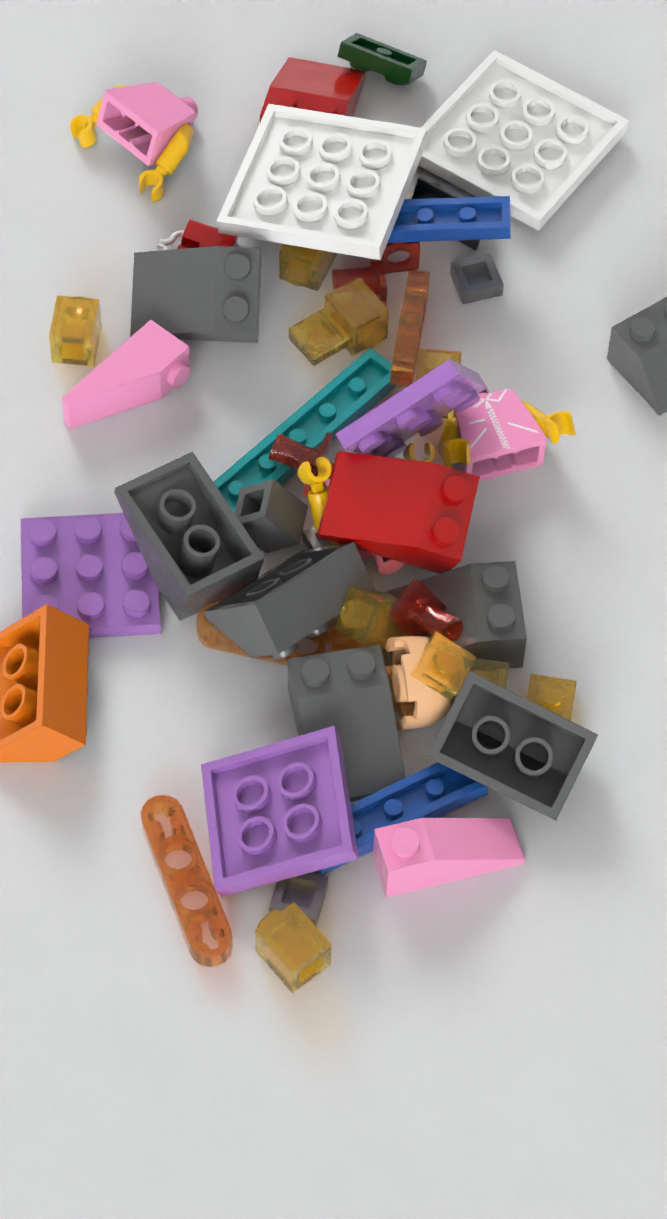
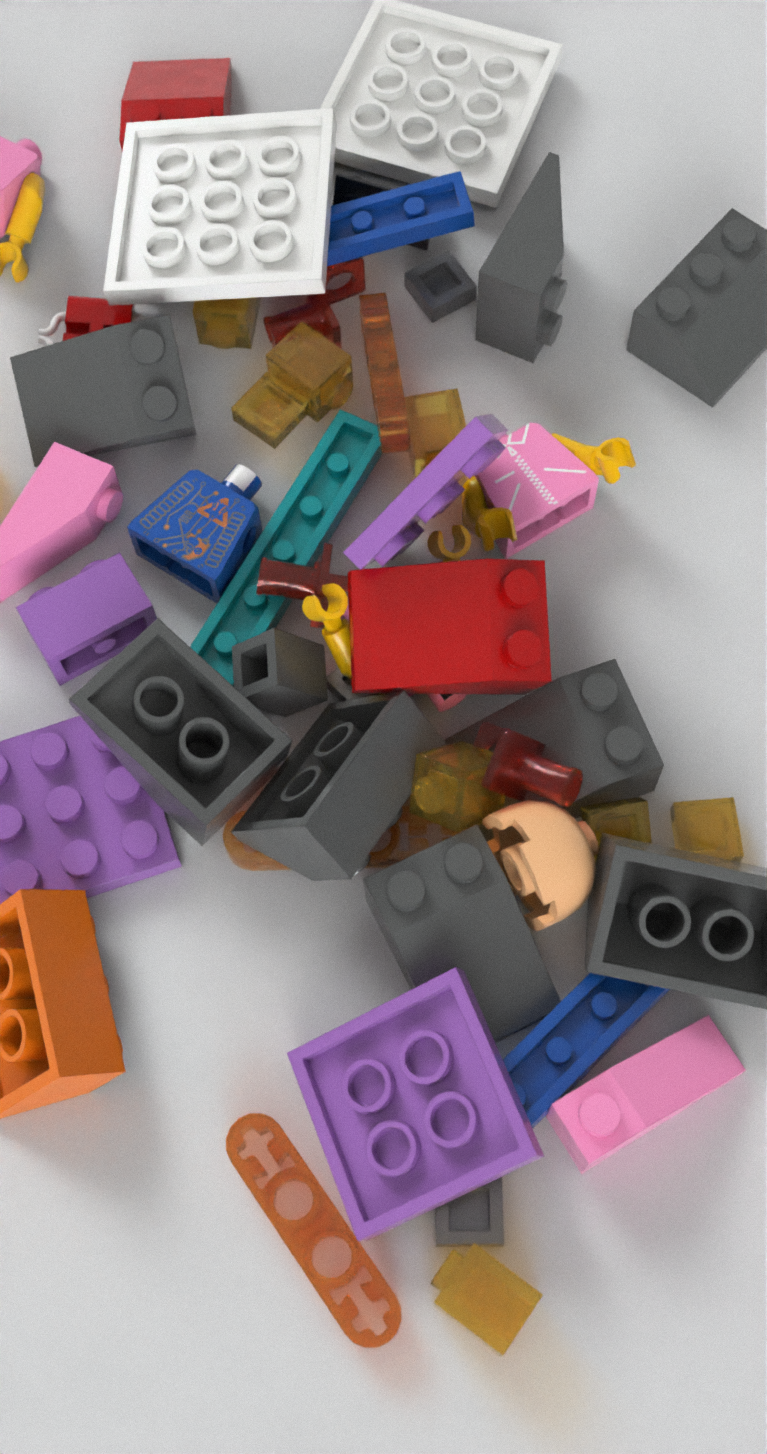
camera: 10 degrees left, 10 degrees up
(138, 445) = (87, 617): none -> medium lavender brick
(240, 406) = (201, 529): none -> blue torso
(372, 55) = (229, 36): dark green plate -> none
(443, 665) = (578, 845): clear yellow plate -> none
(537, 281) = (522, 274): none -> dark grey slope

